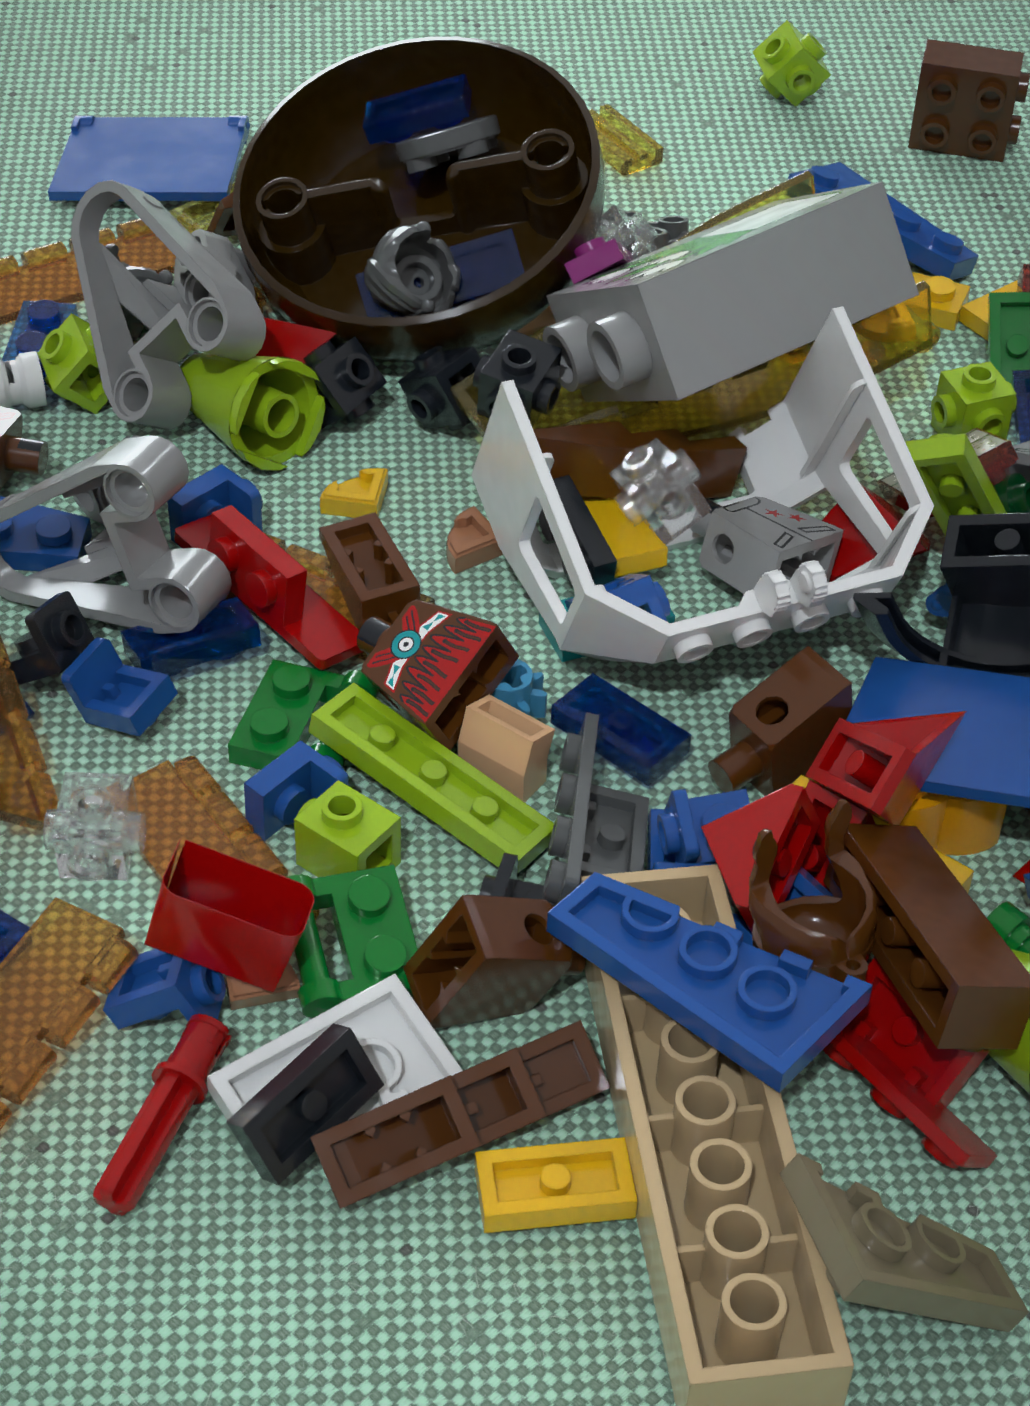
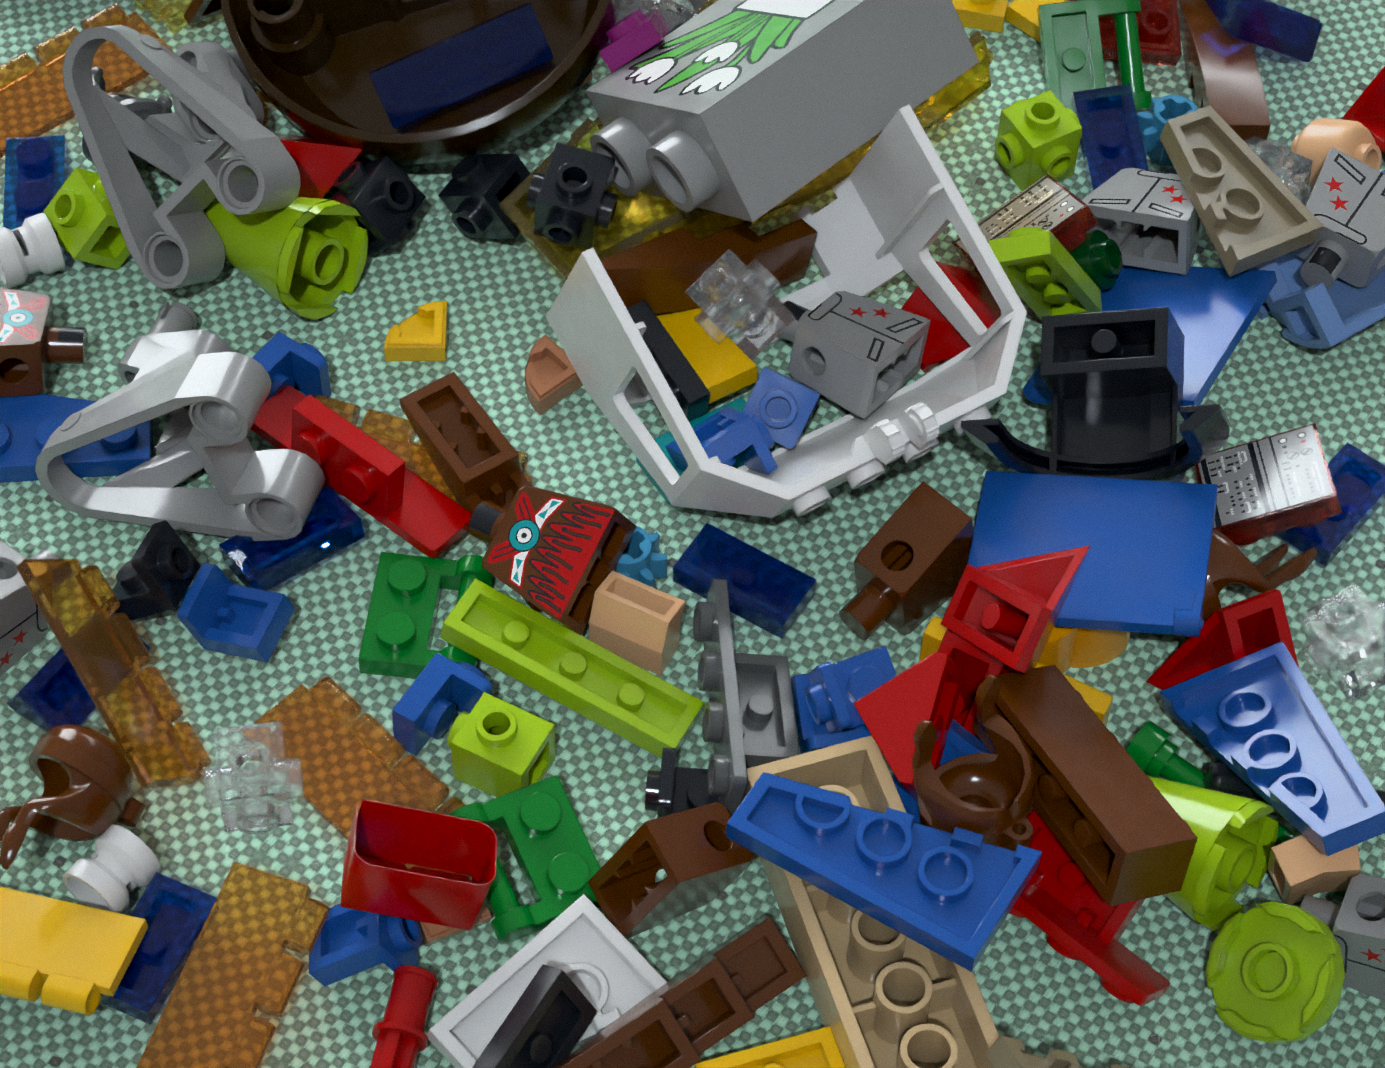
camera: 10 degrees left, 10 degrees up
(407, 256) = (413, 68): dark grey hair -> none
(687, 582) = (781, 405): none -> blue bracket

